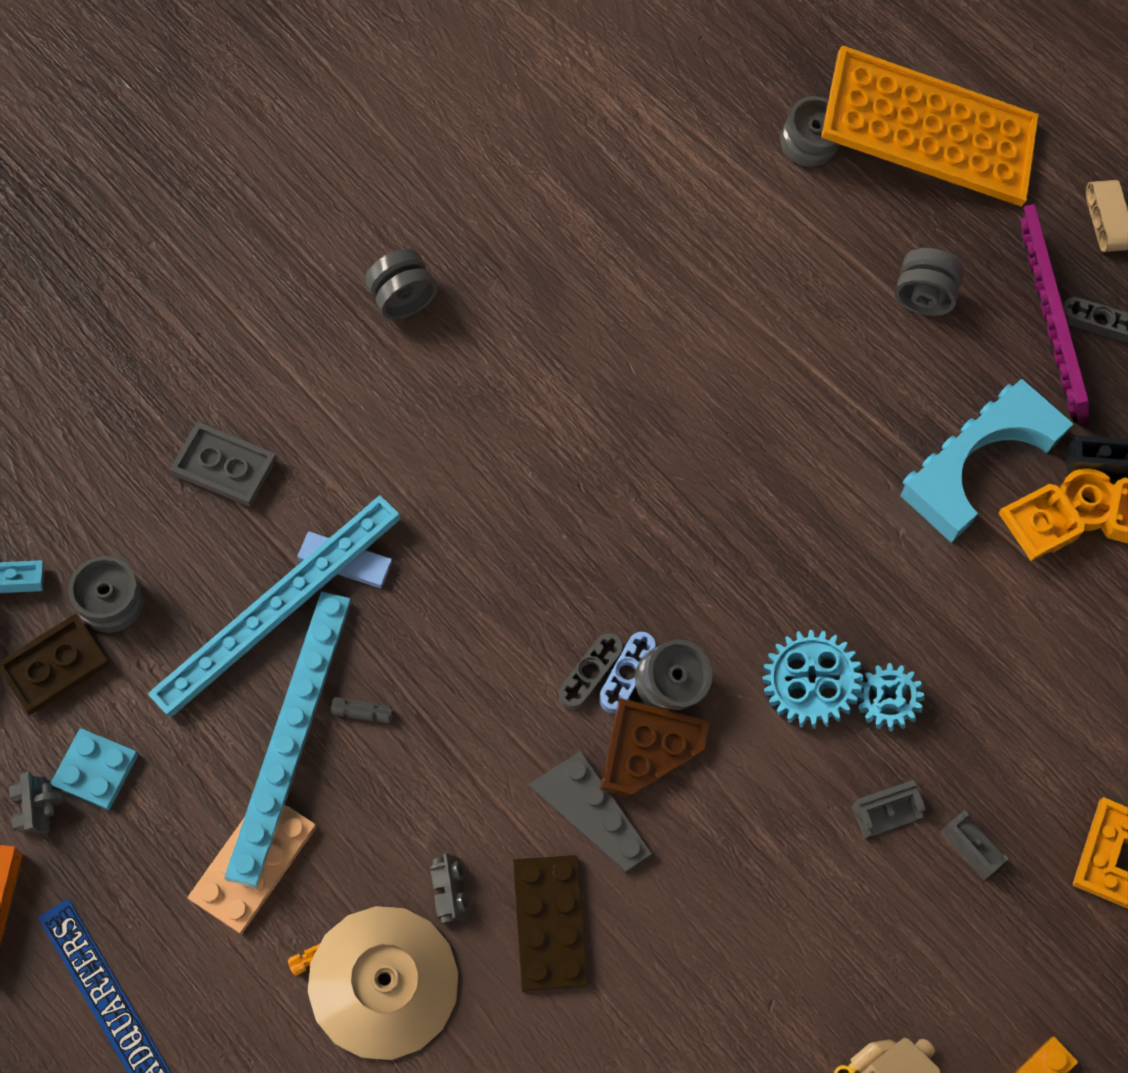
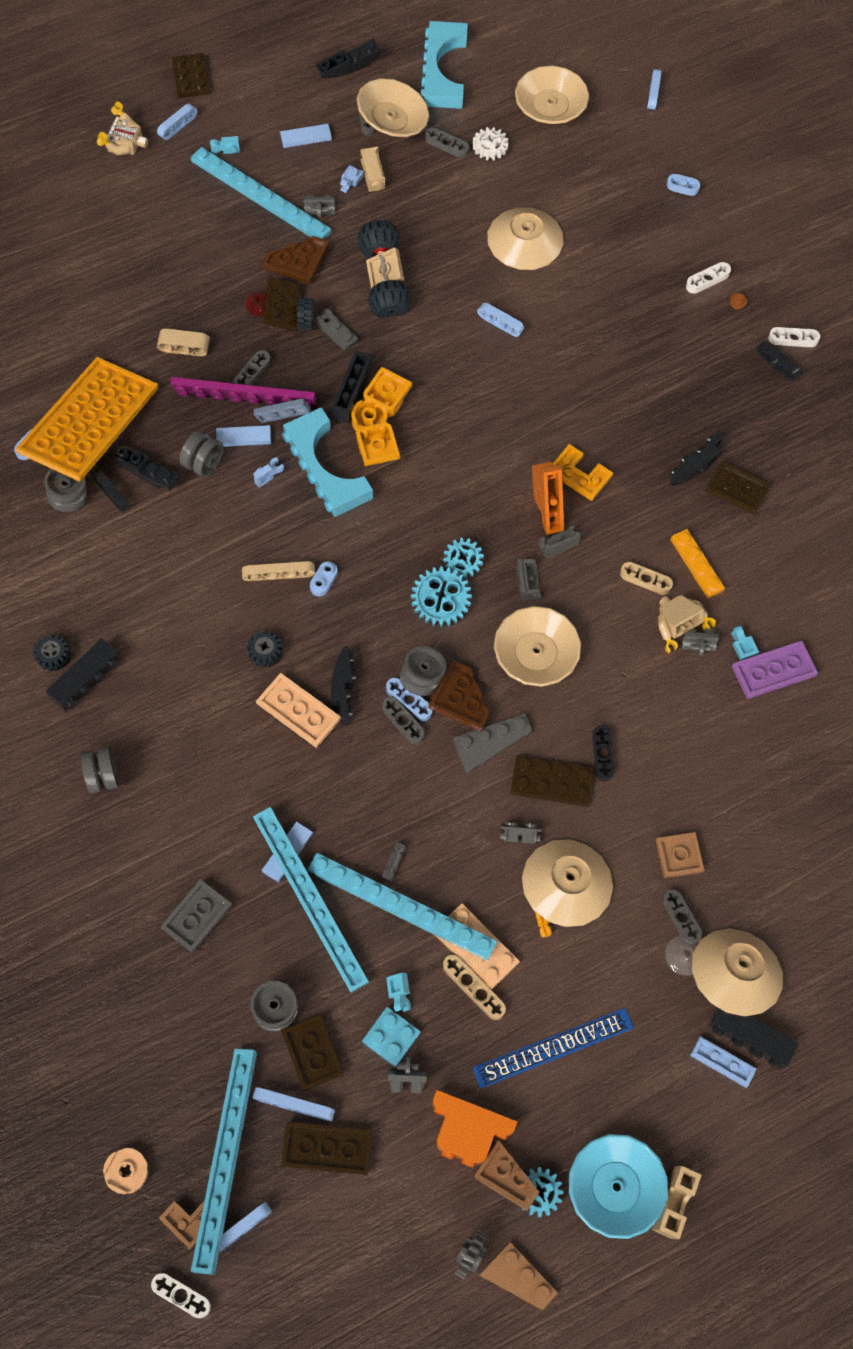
camera: 75 degrees left, 0 degrees up
(163, 761) = (397, 989): none -> medium azure plate
(184, 870) = (476, 985): none -> tan beam
(540, 232) = (83, 675): none -> black brick
(564, 520) = (298, 710): none -> light nougat plate
(568, 178) = (44, 652): none -> black wheel
(631, 565) = (341, 683): none -> black slope
(638, 979) = (607, 745): none -> black beam
(645, 459) = (267, 655): none -> black wheel
(779, 437) = (278, 571): none -> tan beam
(787, 819) = (540, 630): none -> tan dish
(790, 505) = (324, 577): none -> light blue plate
(832, 188) = (110, 490): none -> black beam
(883, 221) = (144, 468): none -> black slope
(934, 381) = (267, 473): none -> light blue plate
(946, 1031) = (645, 571): none -> tan beam
(987, 336) = (244, 435): none -> light blue tile
(1044, 803) = (549, 495): none -> orange brick
(1045, 371) = (282, 410): none -> sand blue tile

